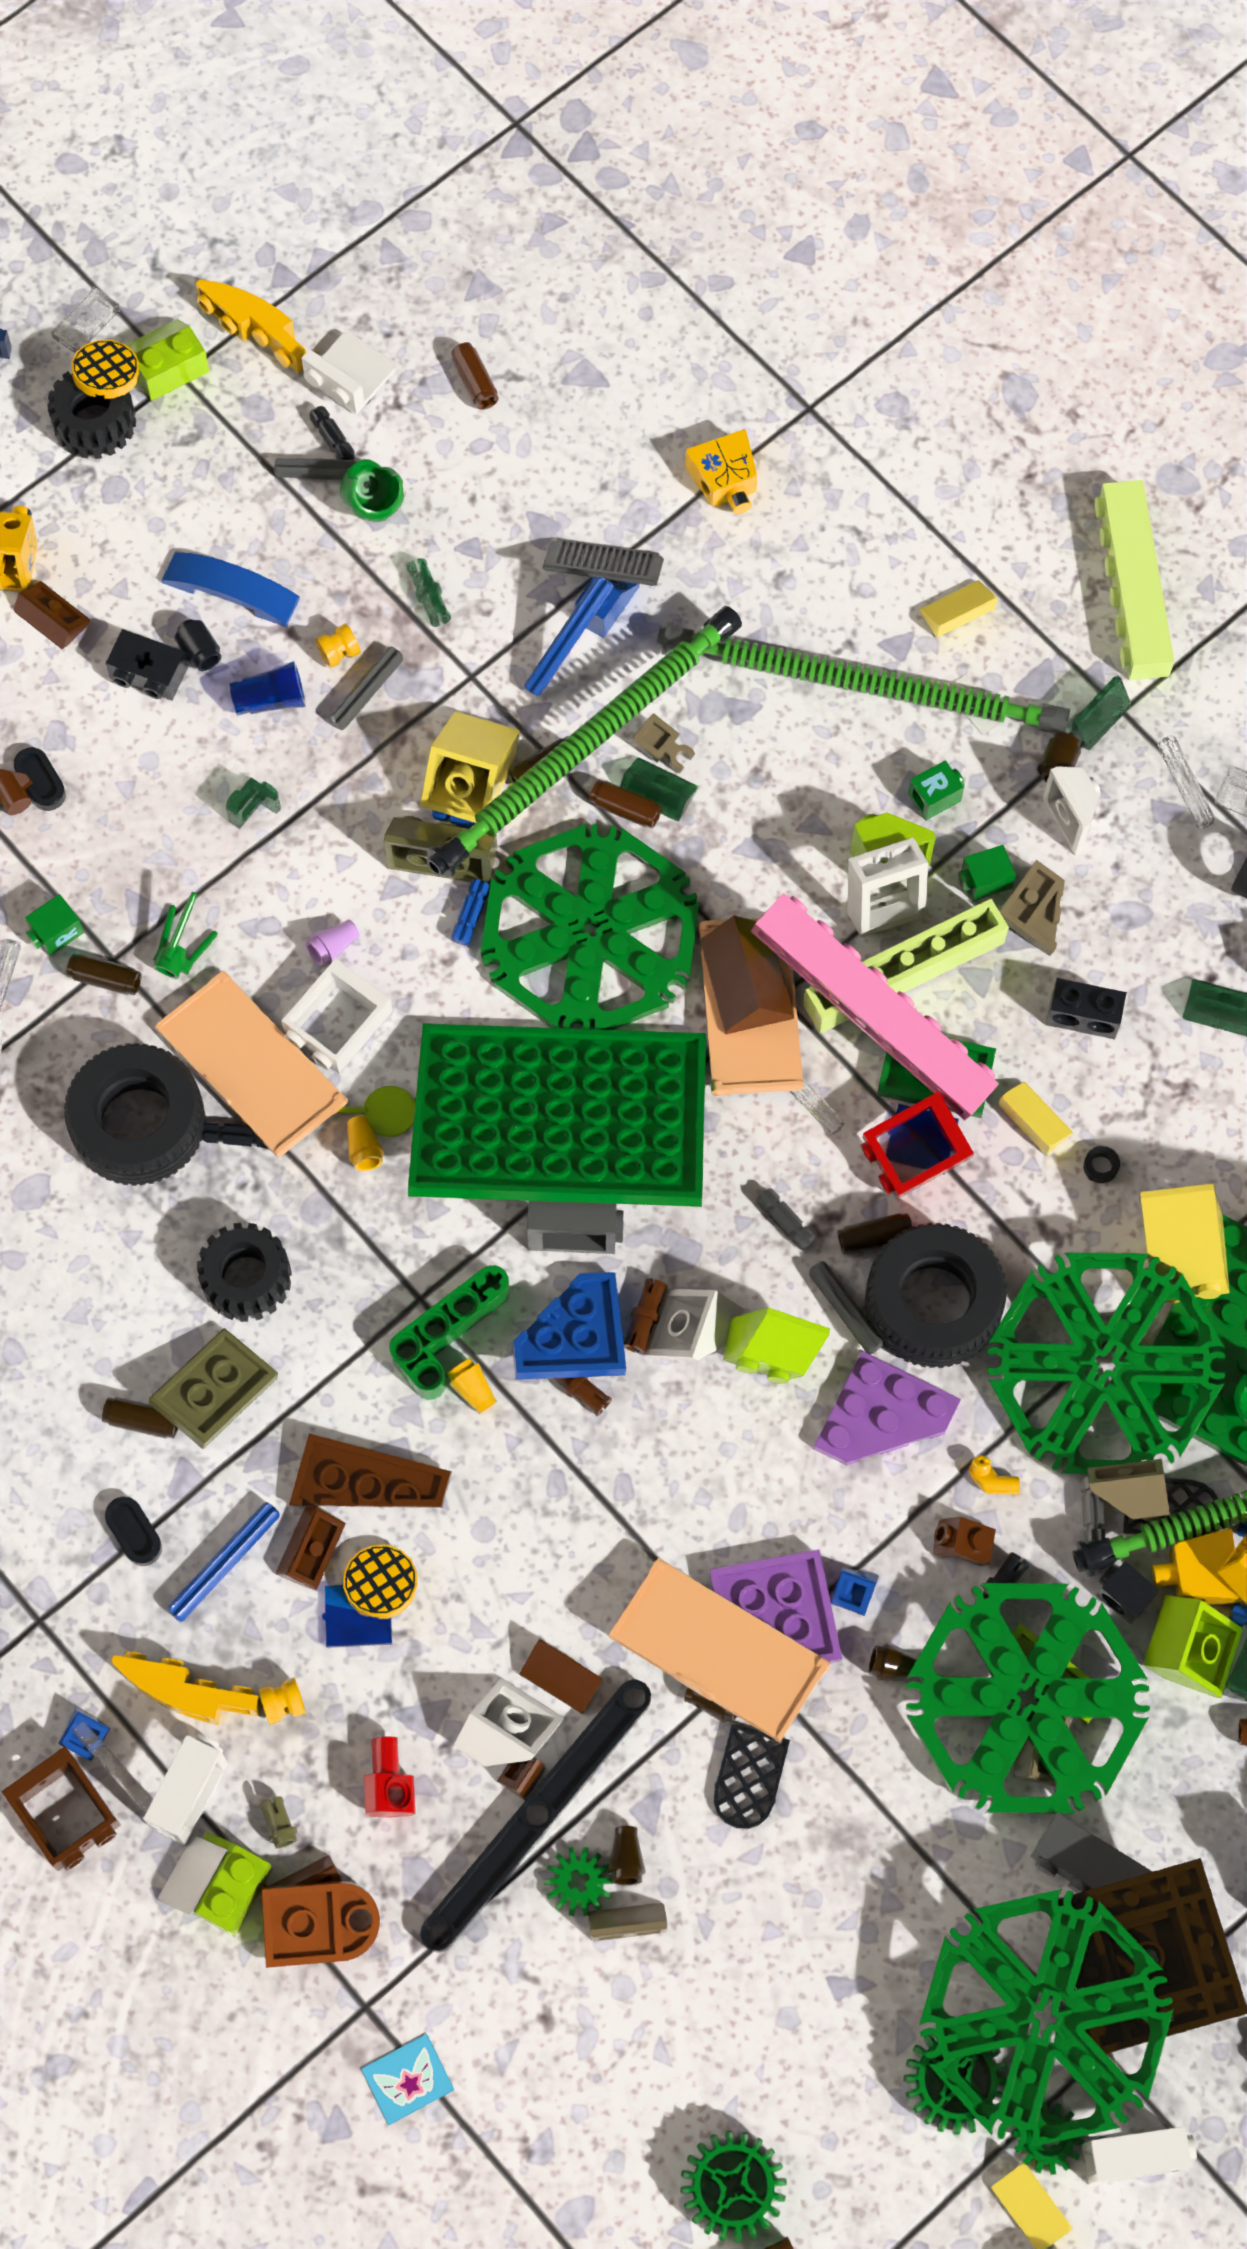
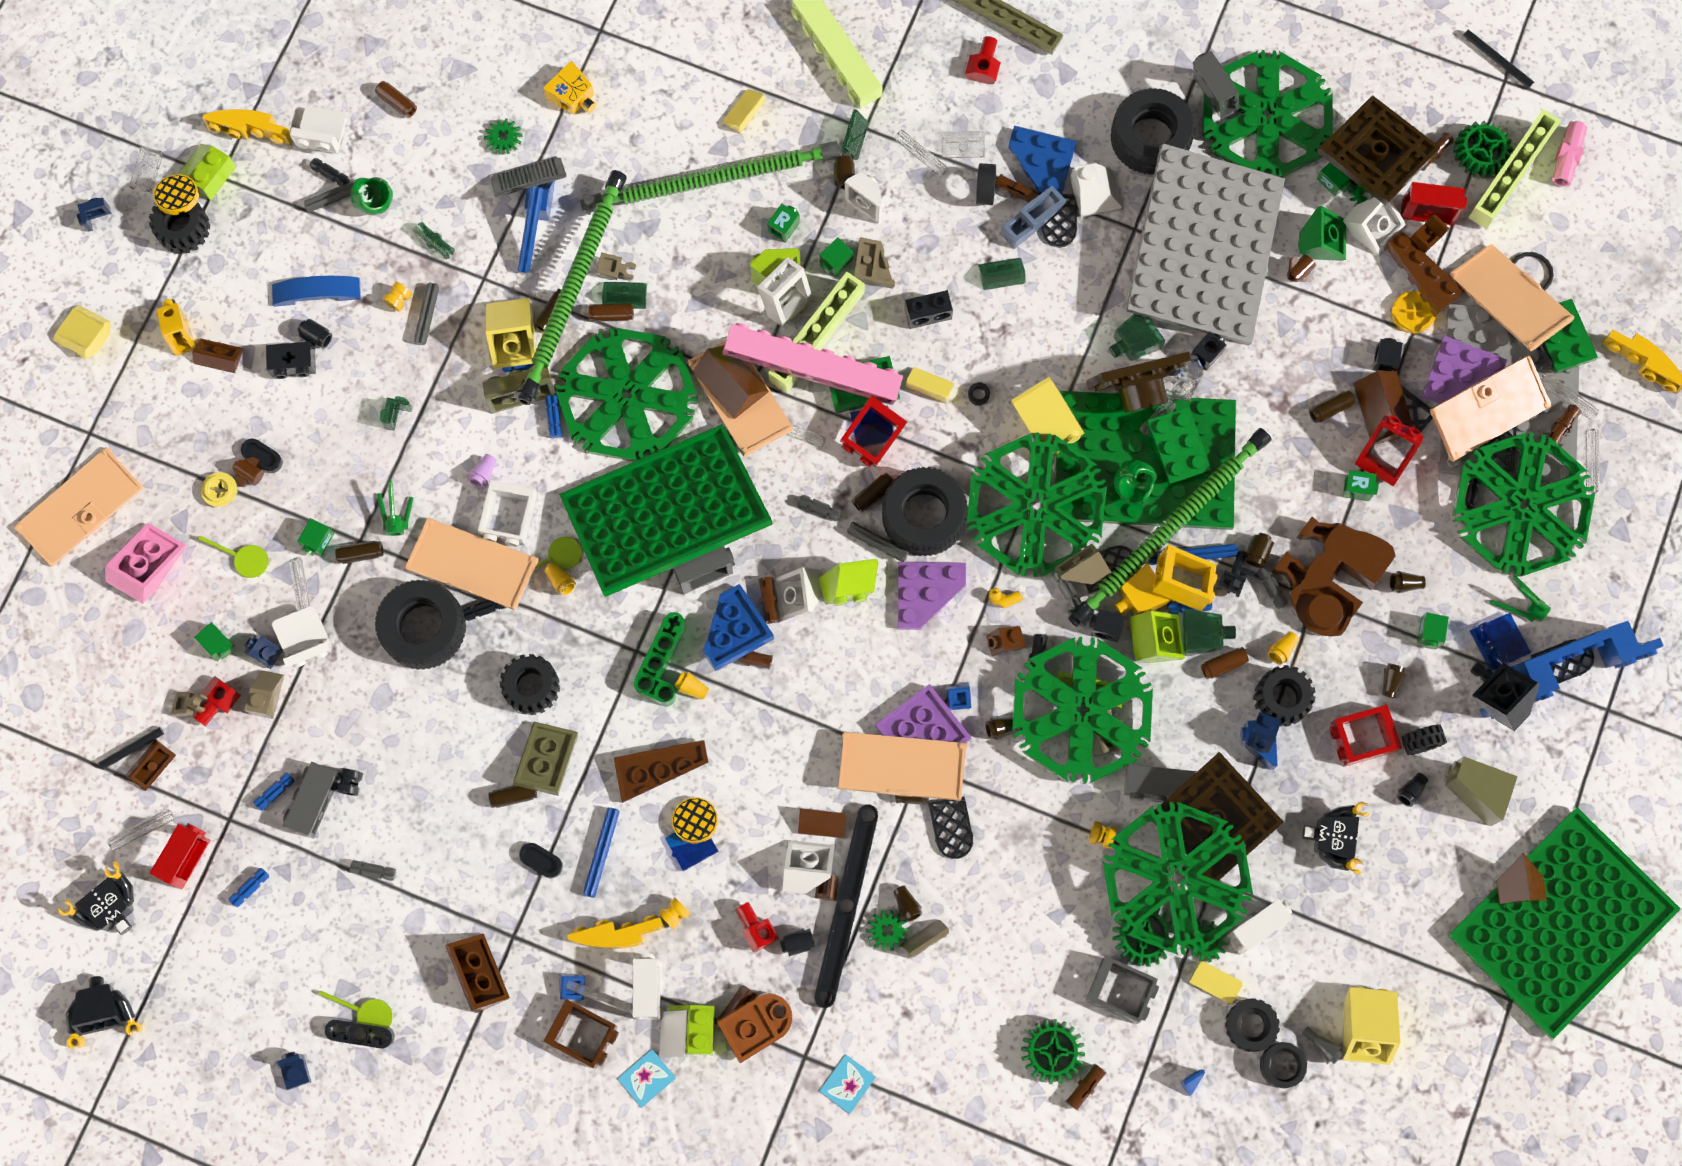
camera: 25 degrees left, 5 degrees up
(123, 1922) = (646, 1078): none -> medium azure sticker
(269, 691) = (370, 342): clear blue plant -> none
(278, 1823) = (706, 981): olive pin -> none
(310, 1548) = (645, 820): reddish brown slope -> none
(438, 1831) = (797, 941): none -> black brick
(590, 502) = (503, 144): none -> green gear
(924, 2171) = (1100, 978): none -> dark grey window
(960, 1892) = (1097, 833): none -> yellow wheel

